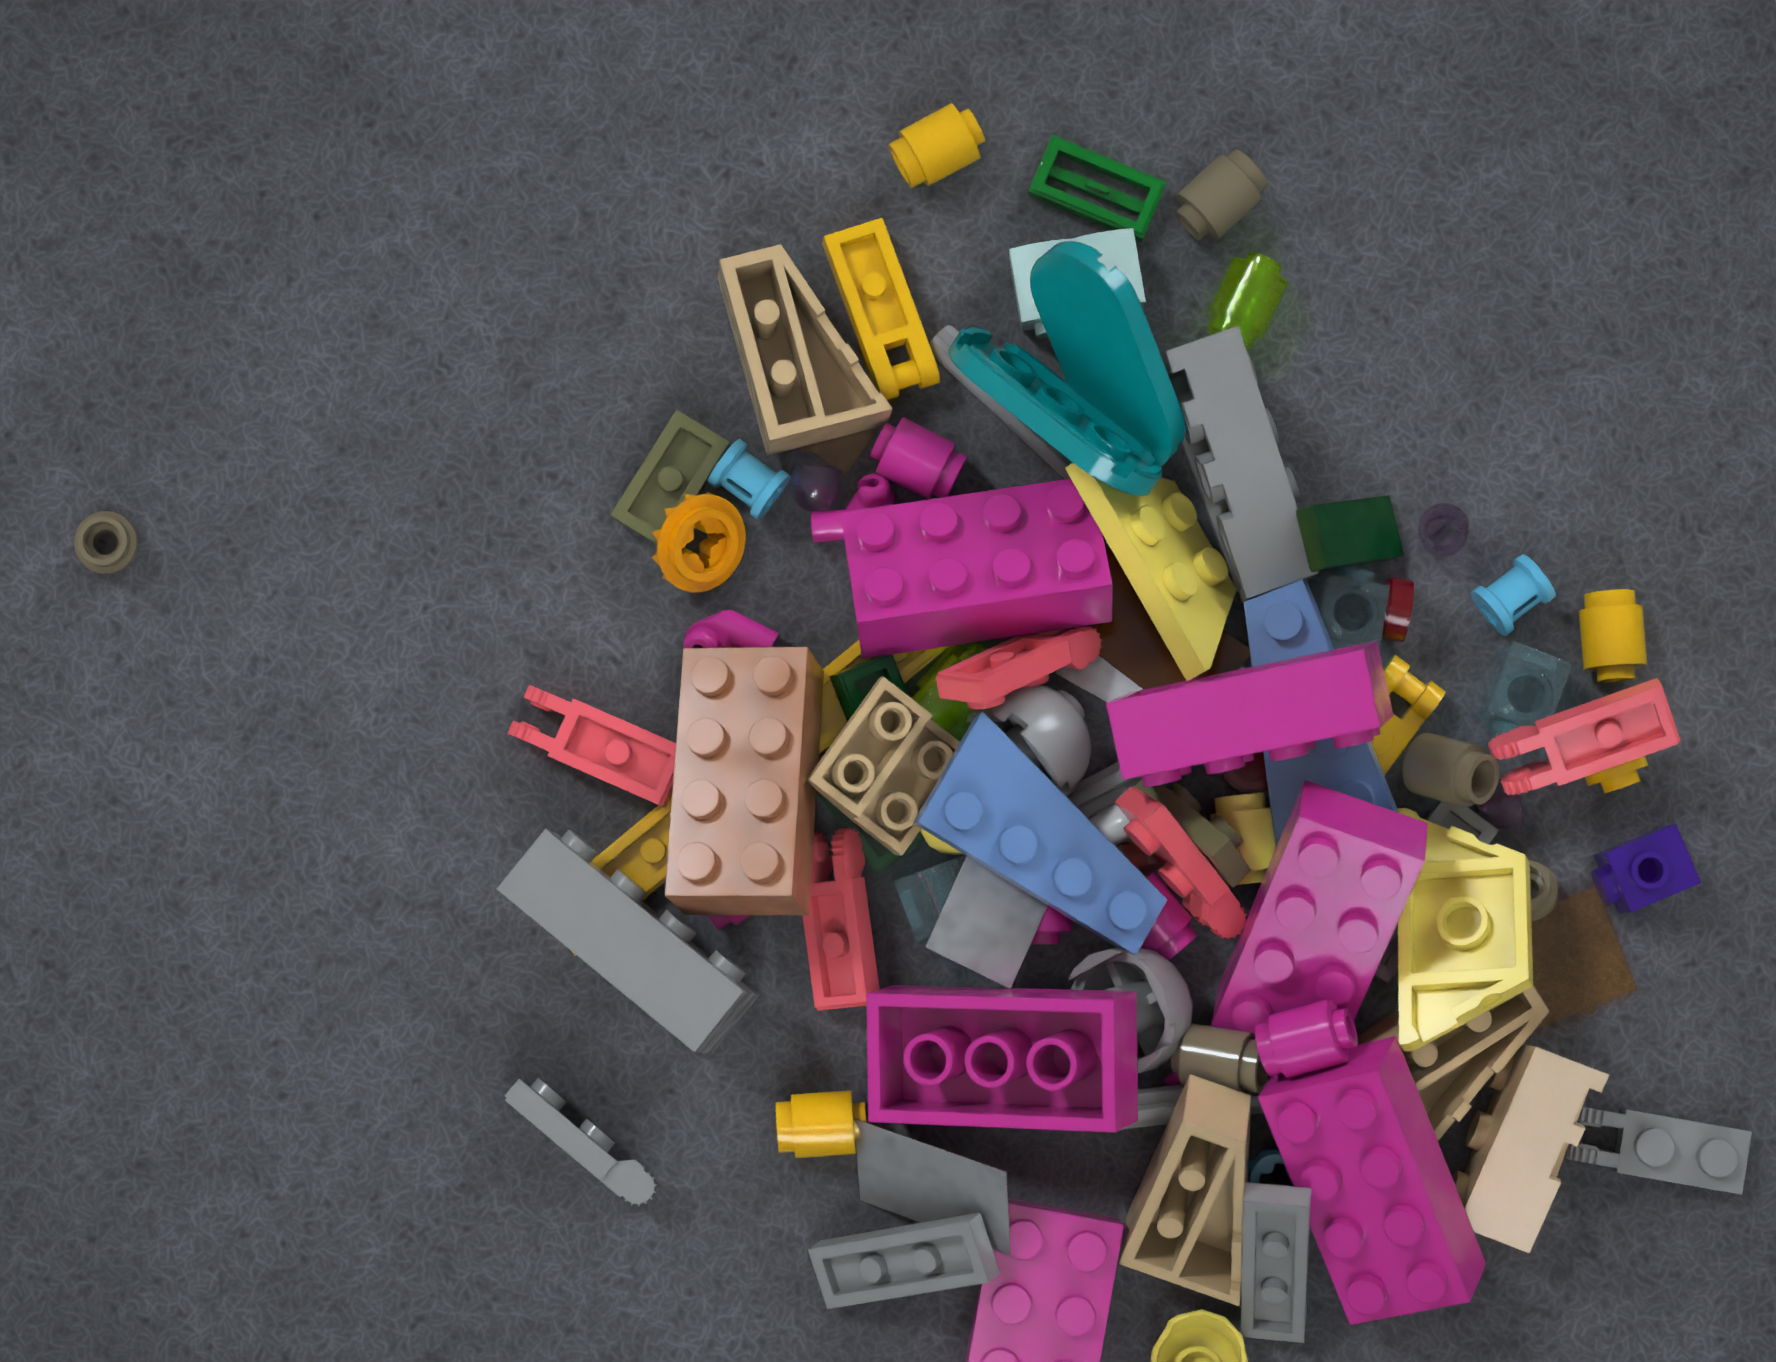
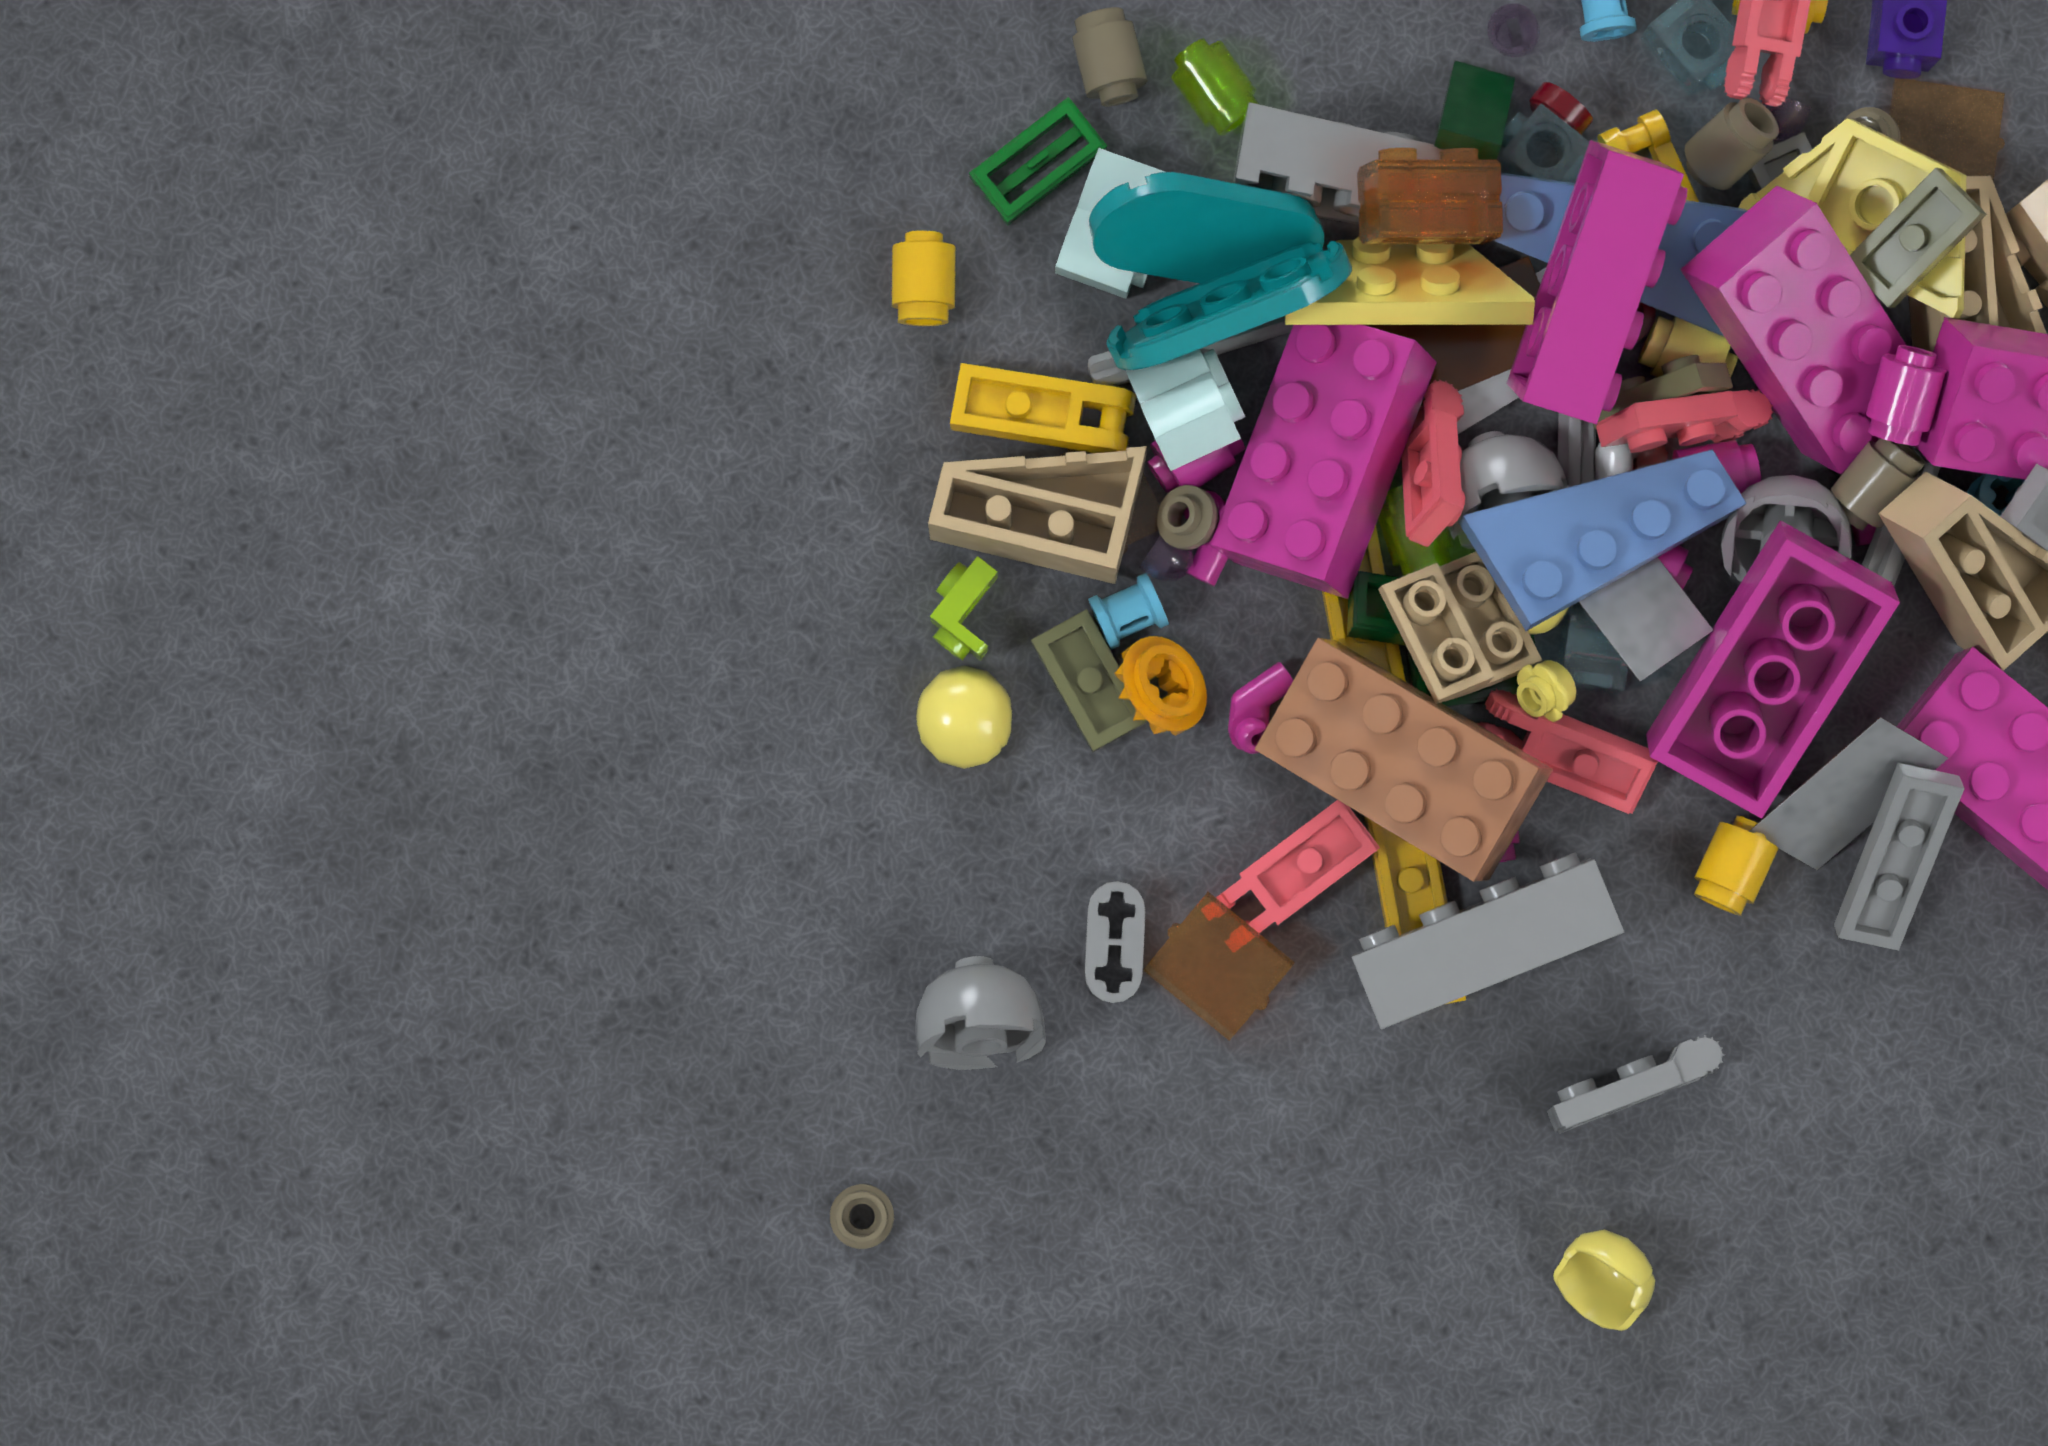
camera: 65 degrees left, 0 degrees up
(327, 541) = (977, 1014): none -> light grey cylinder
(398, 1208) = (1605, 1279): none -> light yellow hair
(450, 614) = (1131, 942): none -> light grey beam
(485, 726) = (1218, 966): none -> clear orange piece
(581, 392) = (964, 717): none -> light yellow hair
(684, 329) = (961, 593): none -> lime bracket
(854, 482) = (1201, 521): none -> dark tan plate
(876, 872) = (1545, 690): none -> light yellow plate
(948, 425) = (1188, 406): none -> light aqua brick
(1244, 530) = (1429, 199): none -> clear orange brick
(1450, 969) = (1916, 237): none -> olive plate

